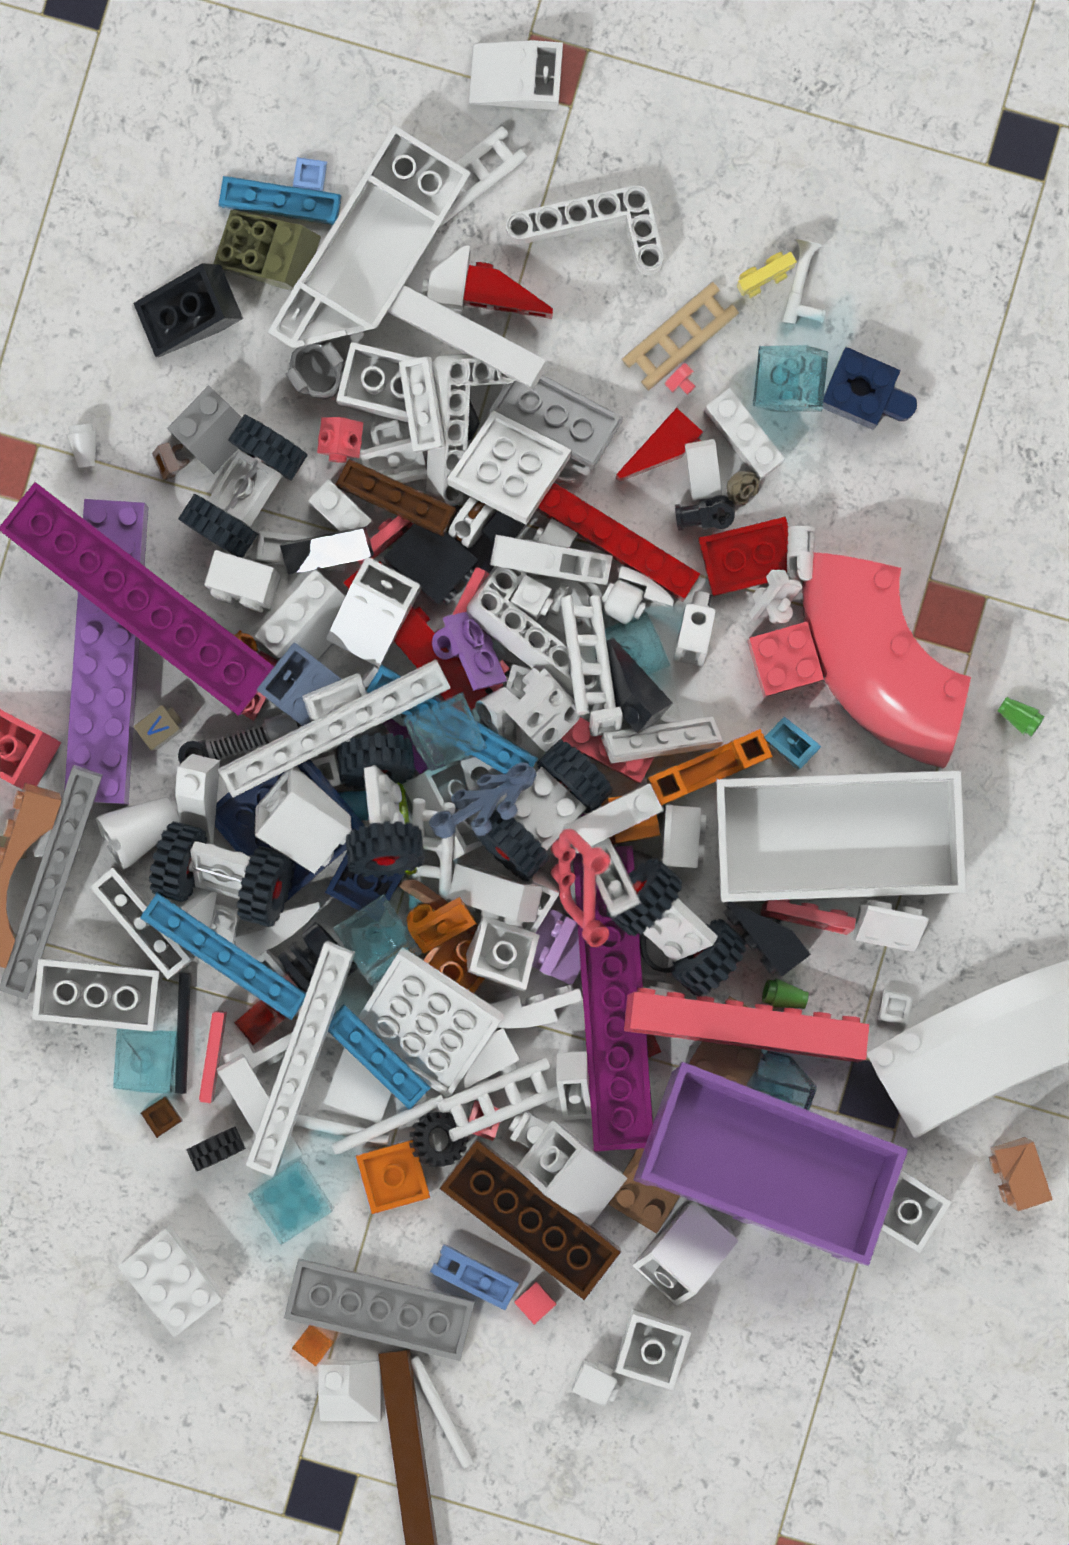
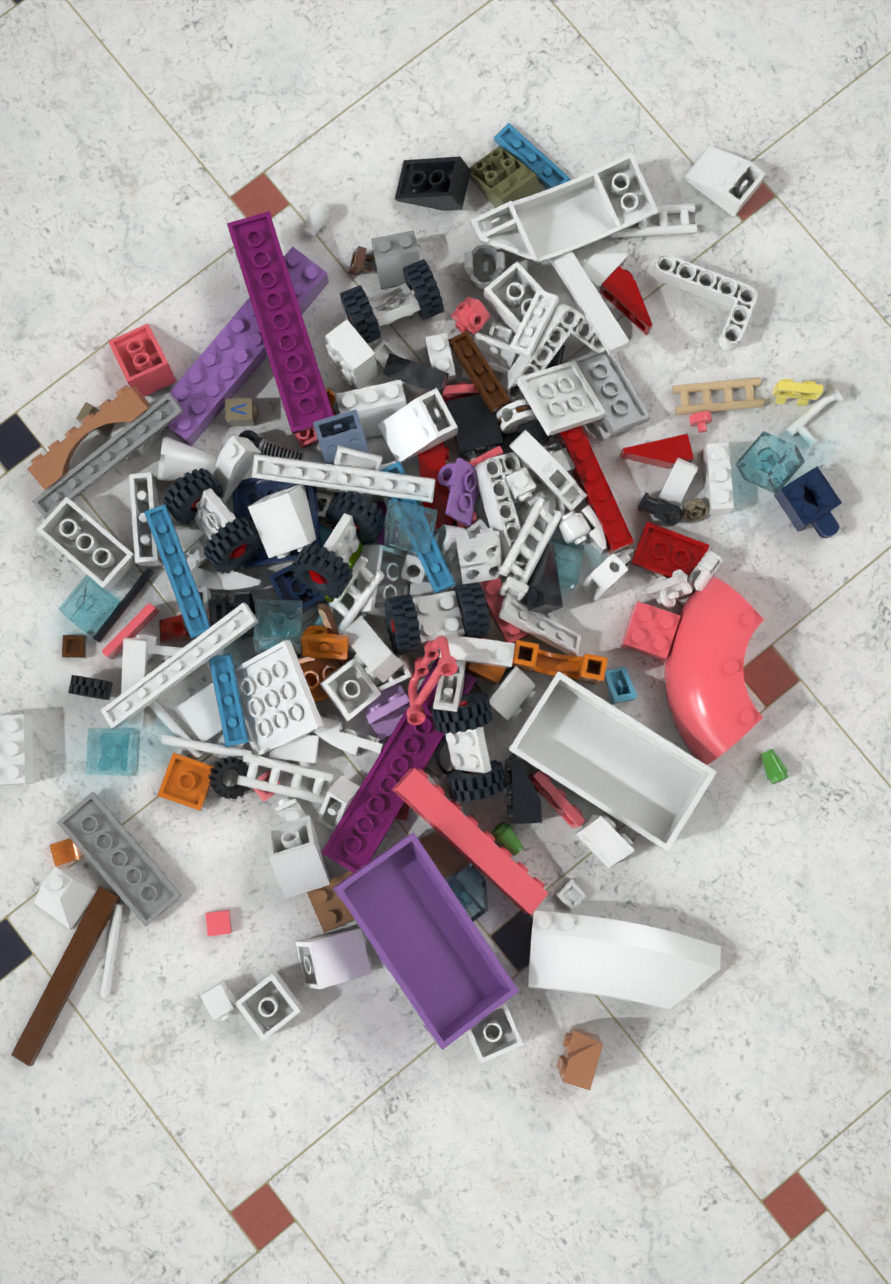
camera: 30 degrees right, 5 degrees down
(310, 174) = (560, 155): light blue tile -> none
(475, 1277) = (192, 880): medium blue plate -> none
(517, 779) = (434, 586): sand blue plant -> none
(529, 1219) = (247, 862): reddish brown brick -> none

